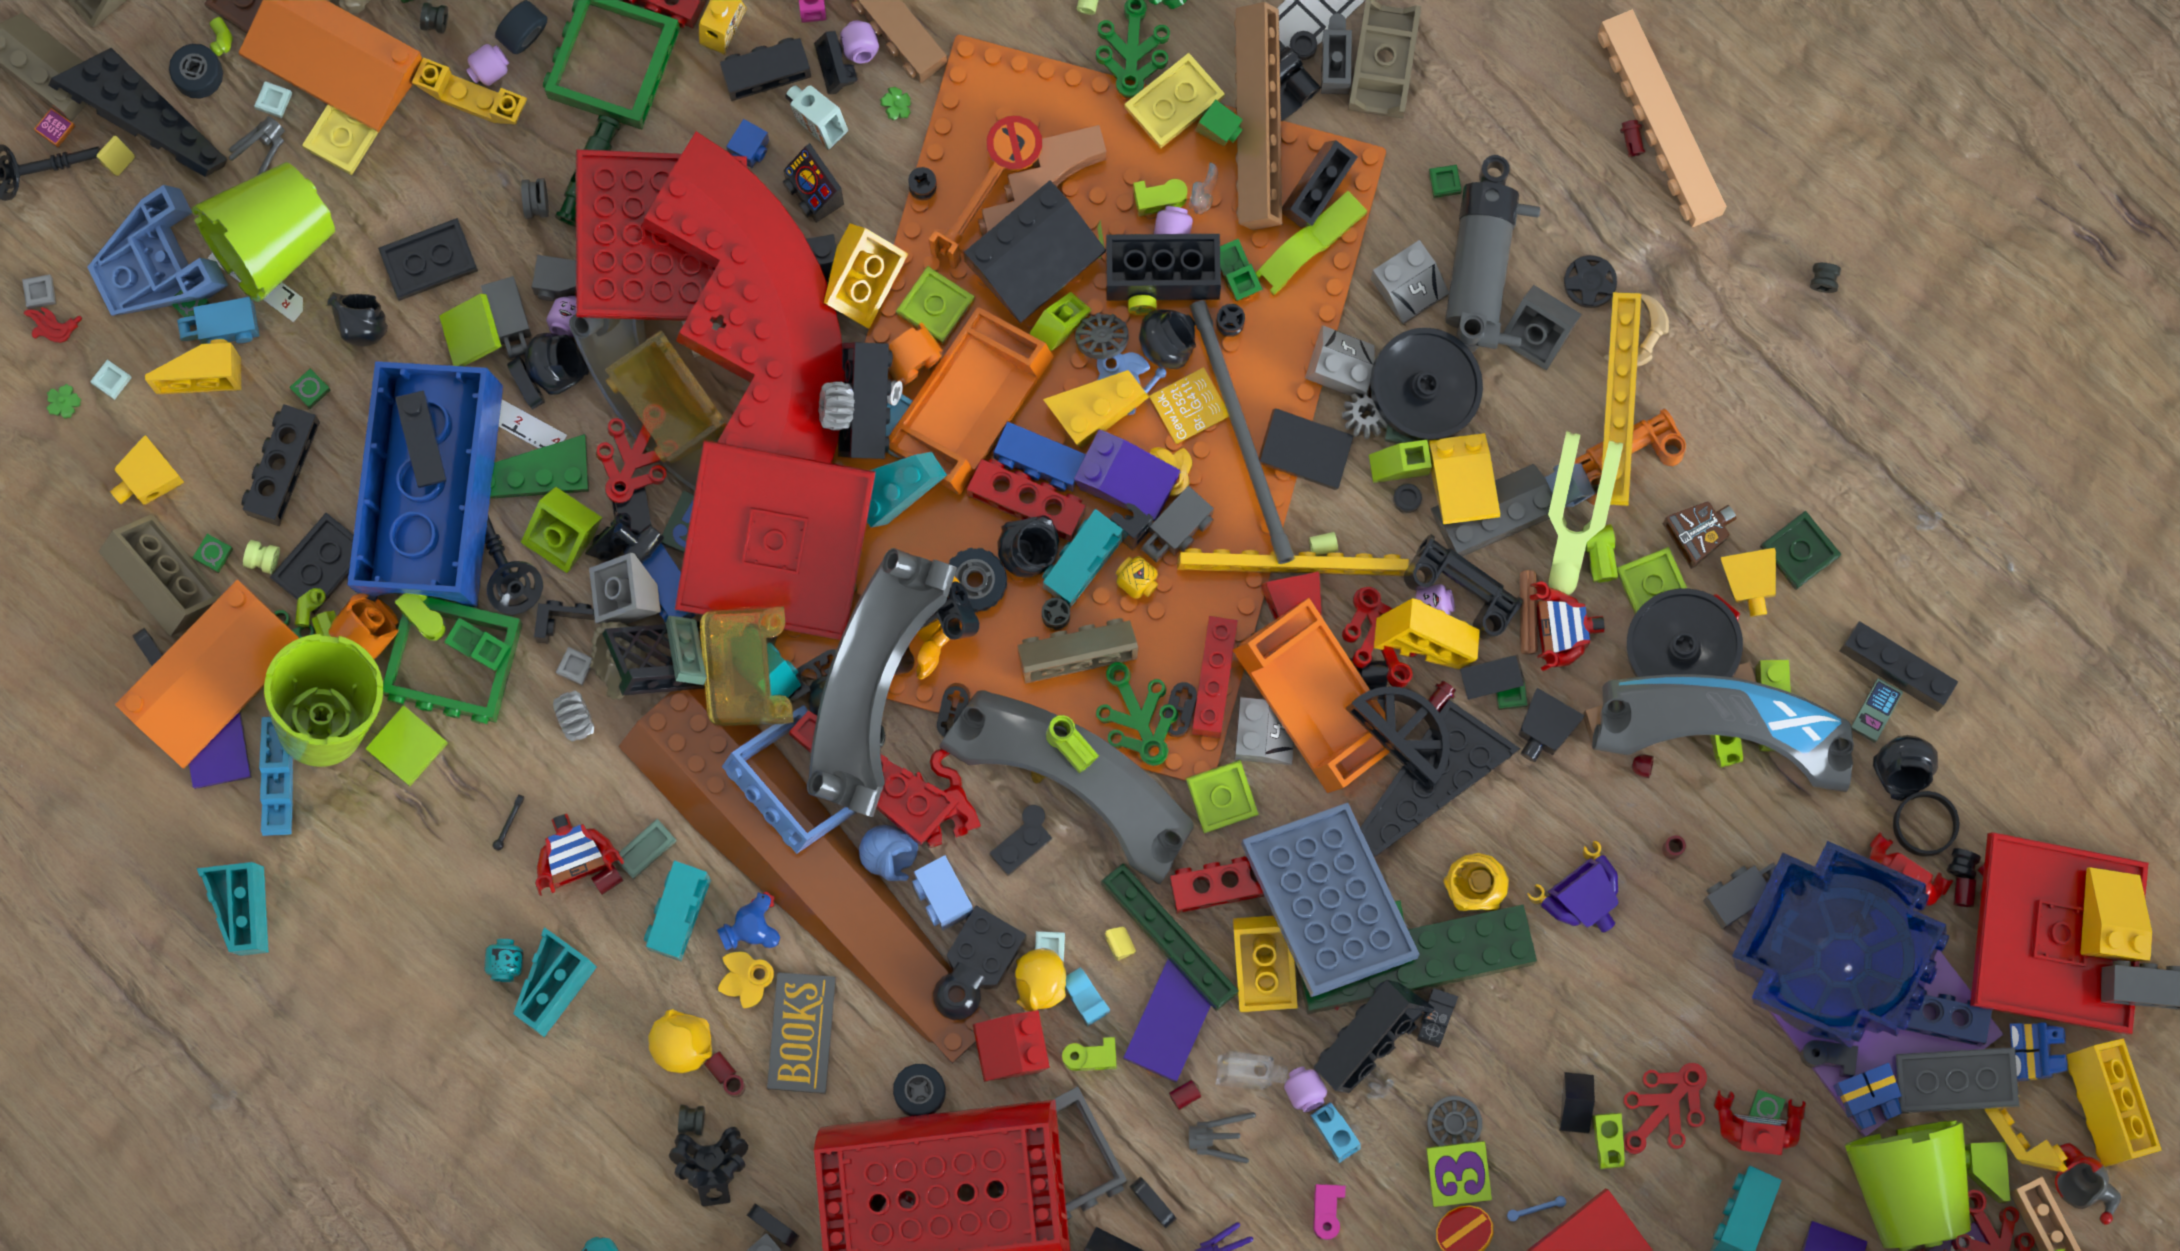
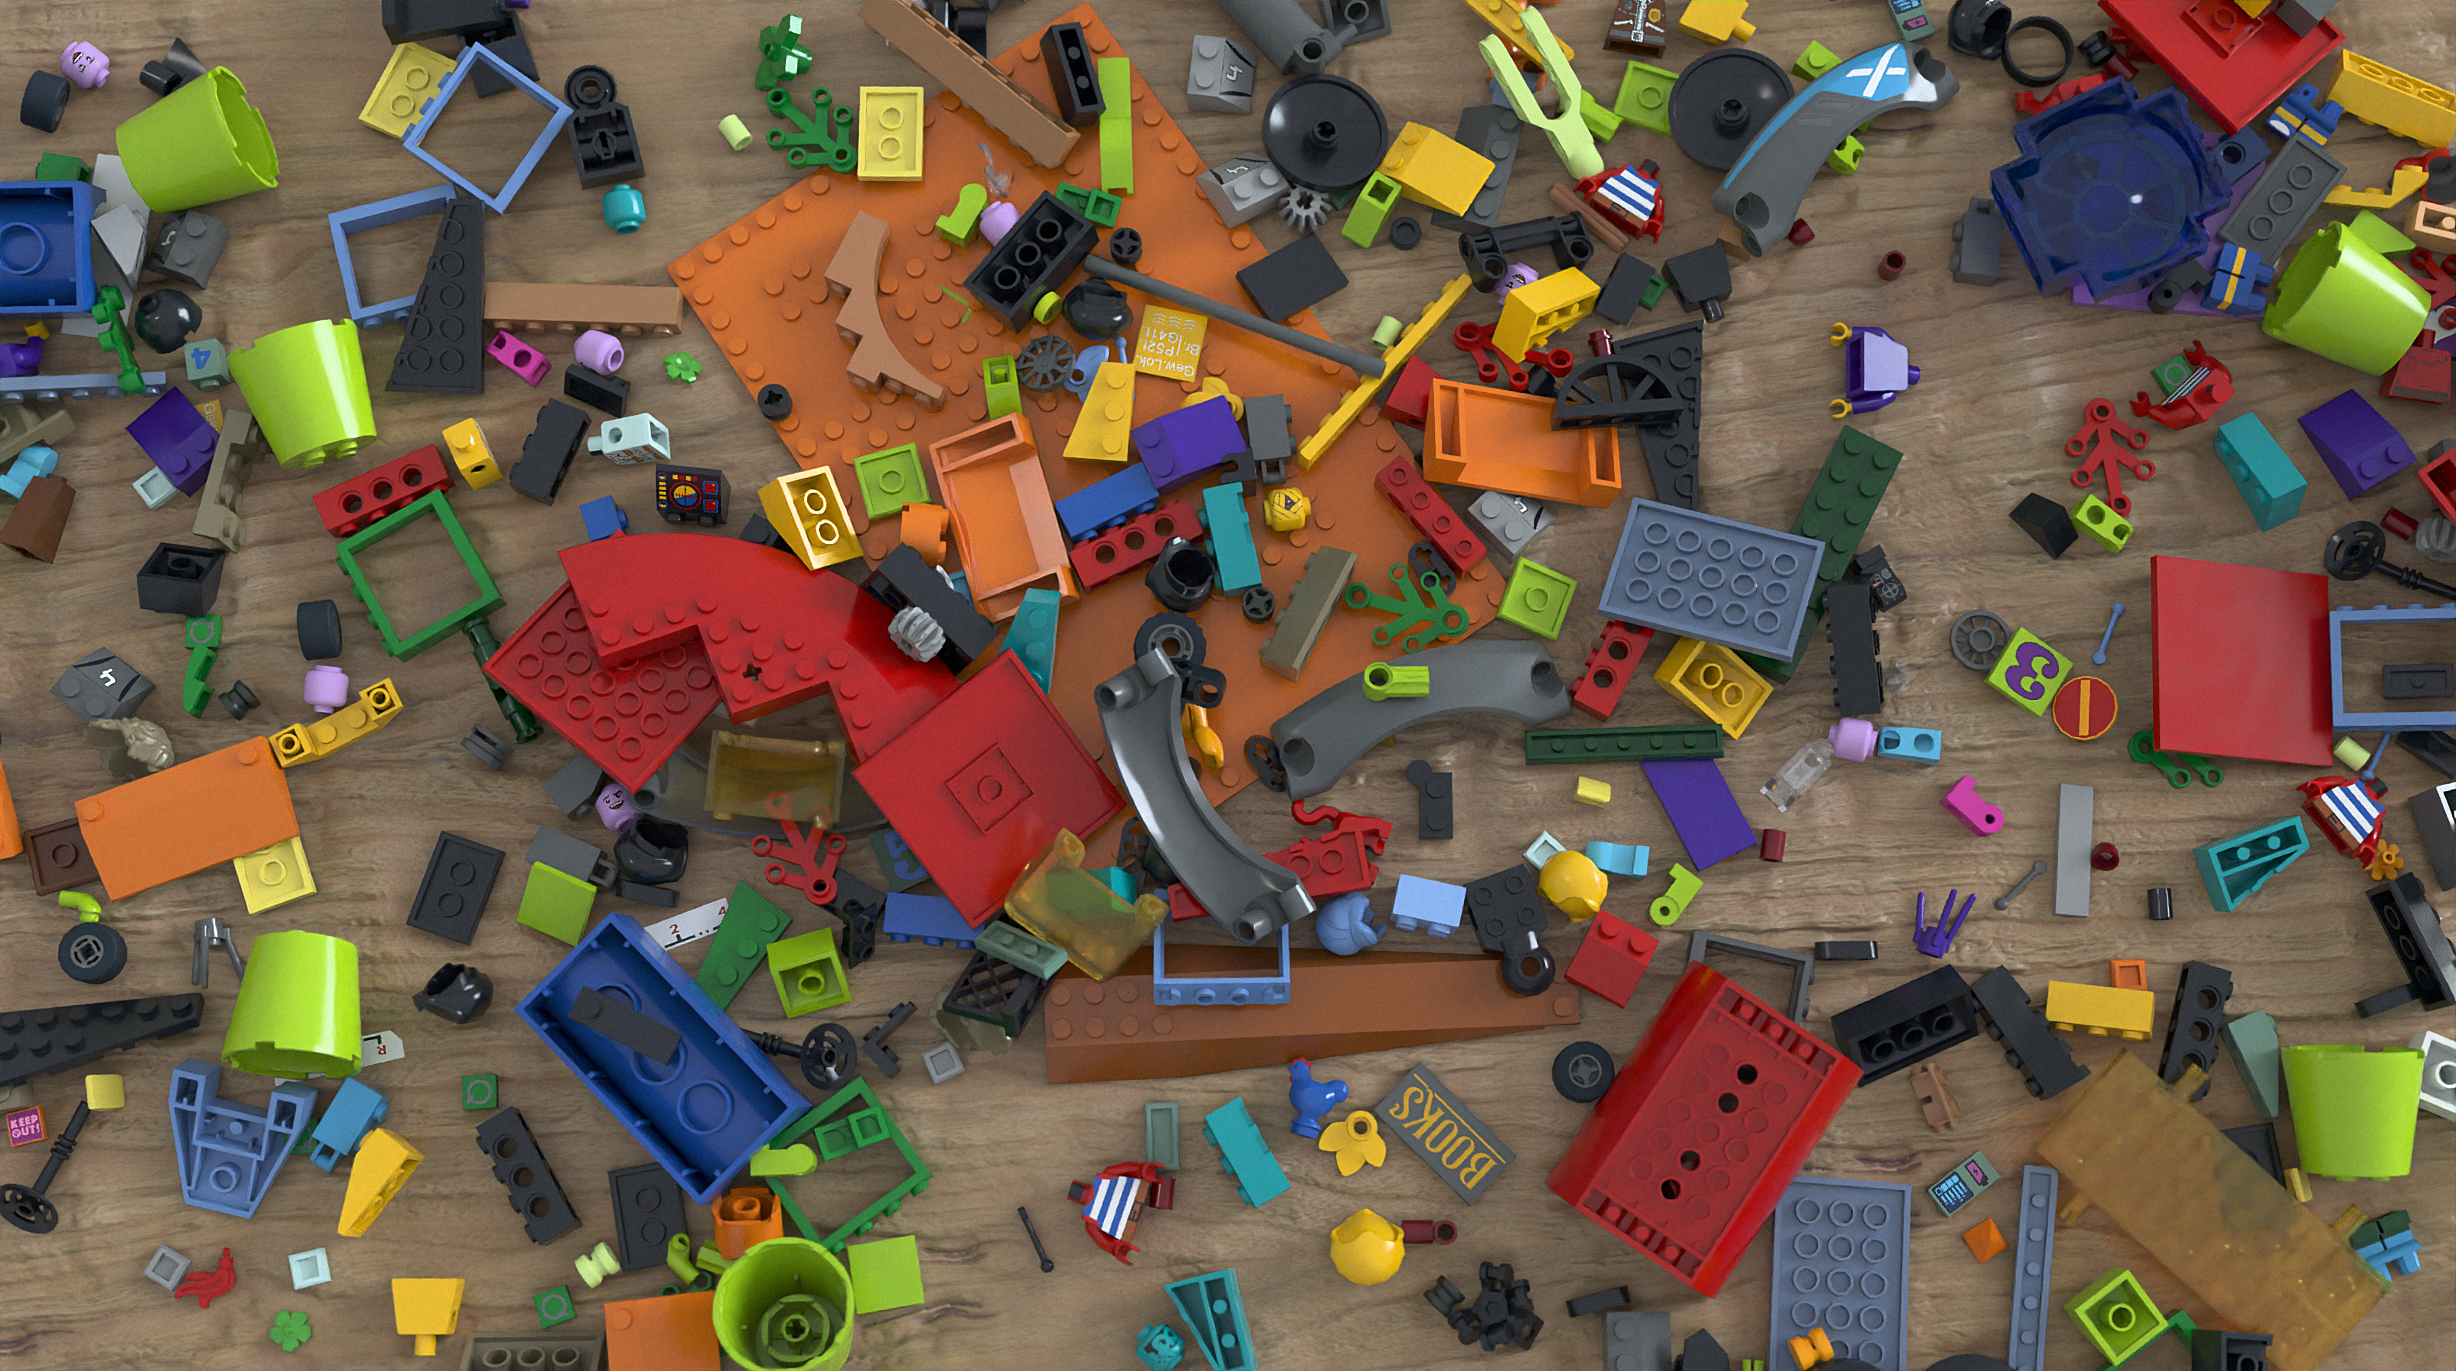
camera: 50 degrees left, 0 degrees up
(273, 99) = (183, 906): light aqua tile -> none
(573, 716) = (990, 1100): light grey gear -> none
(623, 591) = (915, 962): light grey slope -> none
(642, 544) = (889, 911): black piece -> none
(1012, 146) = (812, 296): orange piece -> none
(1034, 251) = (925, 355): black slope -> none
(1201, 1137) = (1823, 861): dark grey plant -> none
(1219, 124) = (948, 110): green slope -> none
(1490, 881) = (1791, 437): yellow helmet -> none

